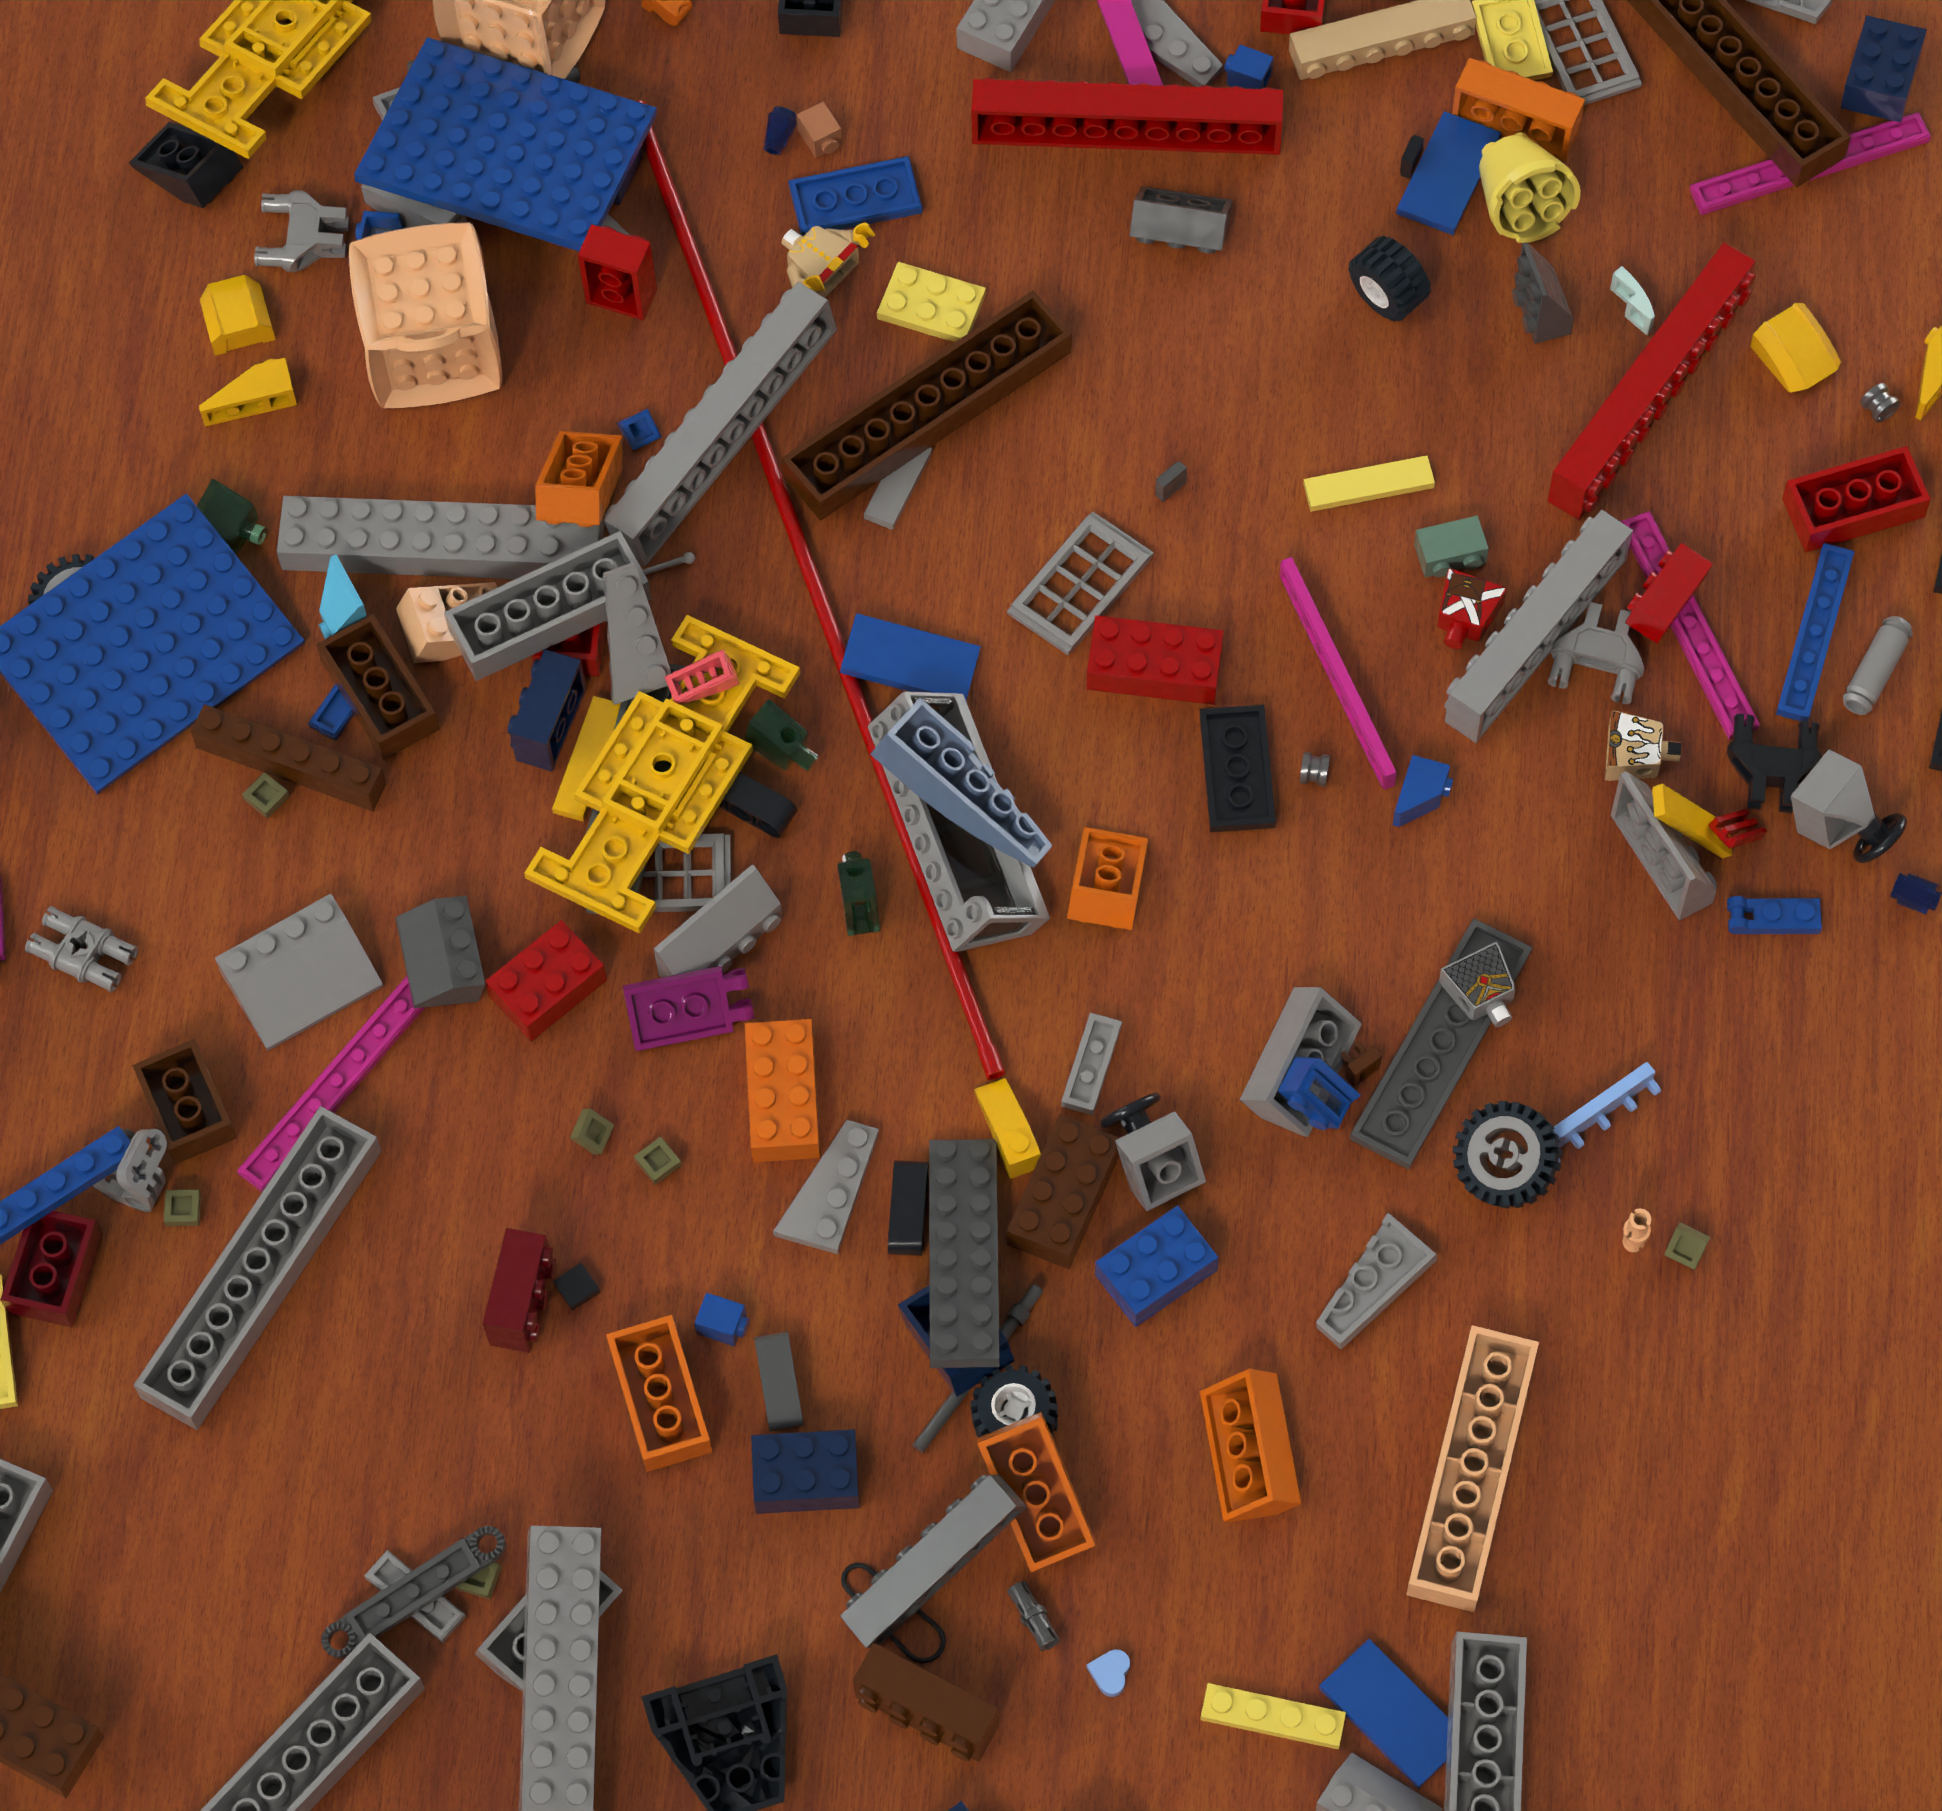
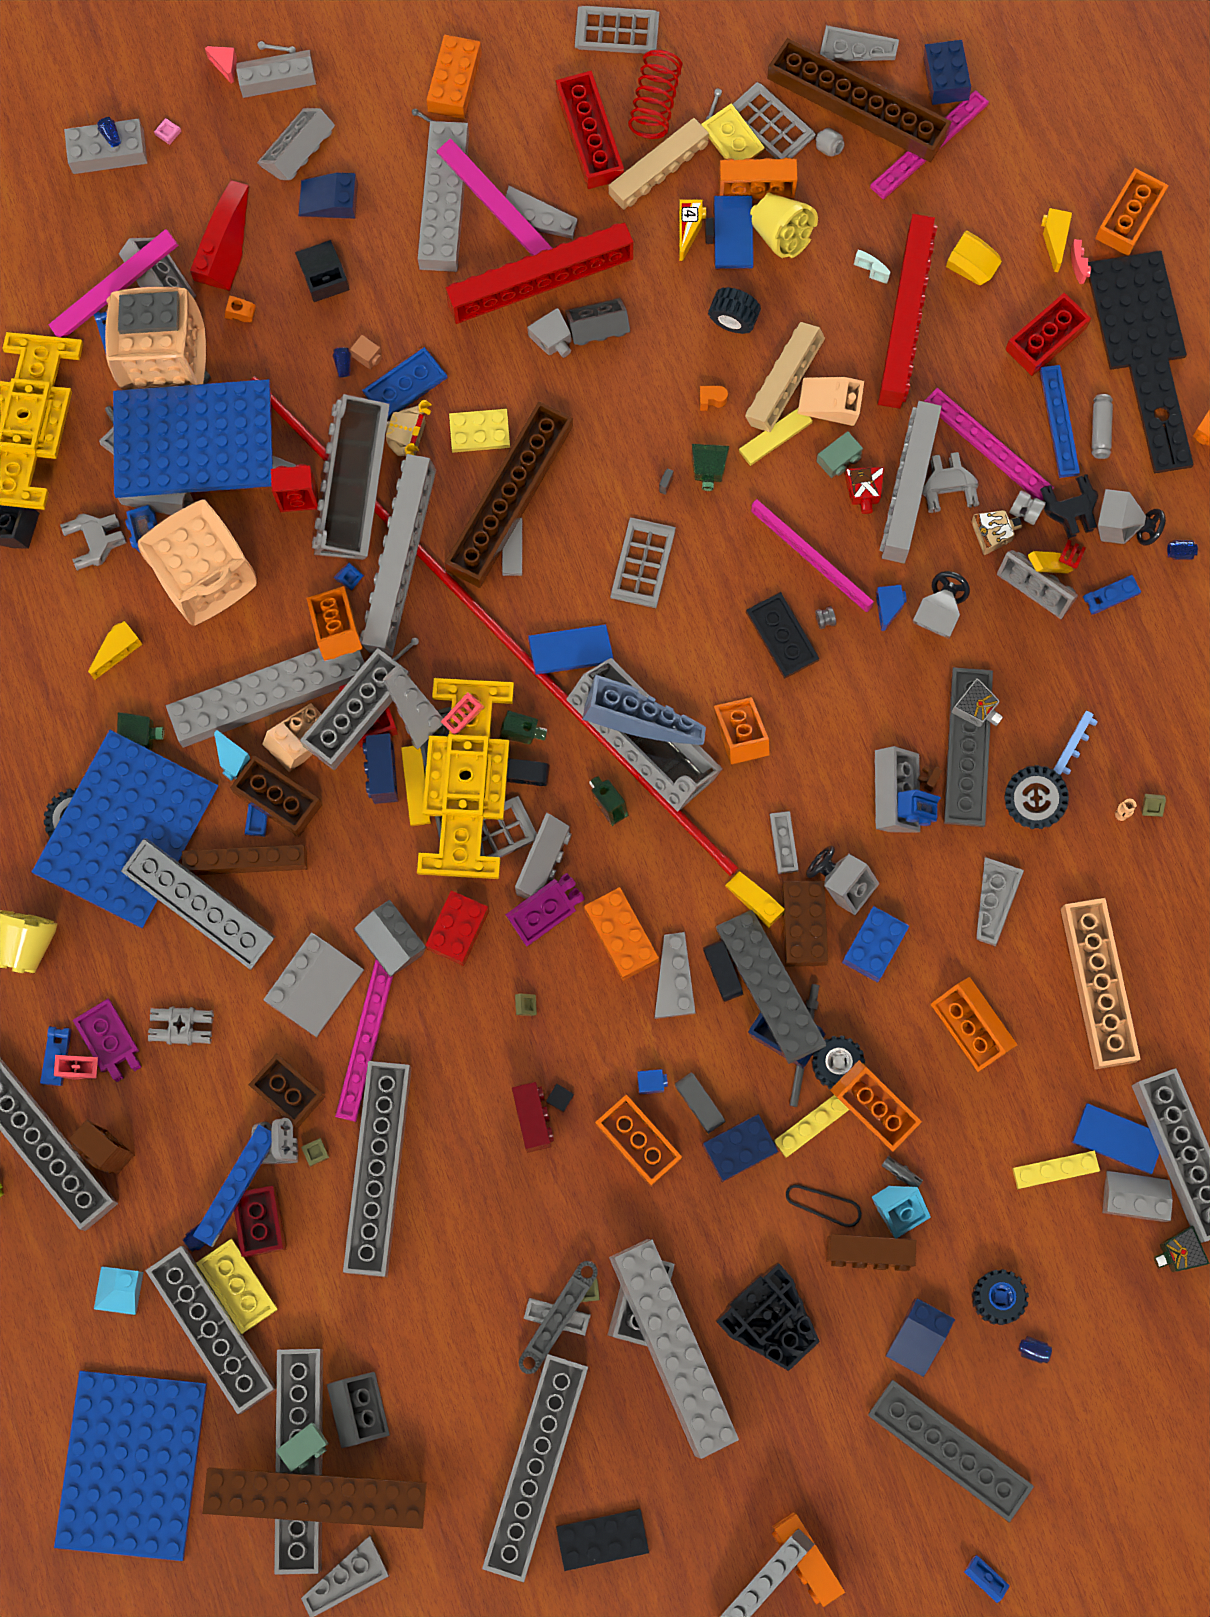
camera: 25 degrees left, 10 degrees up
(59, 1596) = (358, 1409): none -> dark grey slope
(190, 787) = (198, 903): none -> plate
(235, 314) = (79, 604): yellow slope -> none
(266, 795) = (242, 887): olive plate -> none
(657, 1160) = (570, 1005): olive plate -> none
(706, 290) = (350, 478): none -> window
(922, 1489) = (810, 1126): none -> light yellow plate
(933, 1560) = (839, 1170): brick -> none
(1006, 1665) = (901, 1208): none -> medium azure slope
(1103, 209) = (551, 334): none -> light grey torso
(1110, 1672) = (957, 1185): light blue tile -> none
(1154, 659) = (708, 591): red brick -> none
(1248, 482) = (709, 464): none -> clear green torso
(1249, 68) = (593, 215): blue brick -> none
(1300, 389) = (713, 396): none -> orange leg
(1387, 136) = (690, 222): none -> yellow slope
(1422, 403) = (785, 376): none -> tan brick
(1476, 461) = (831, 399): none -> light nougat slope
(1490, 822) = (940, 610): none -> light grey piece
(1540, 297) = (822, 287): dark grey slope -> none
(1656, 101) = (829, 142): none -> light grey head
(1667, 592) = (973, 432): red brick -> none
(1698, 731) = (1027, 507): none -> light grey wheel
(1880, 402) = (1033, 271): flat silver wheel -> none

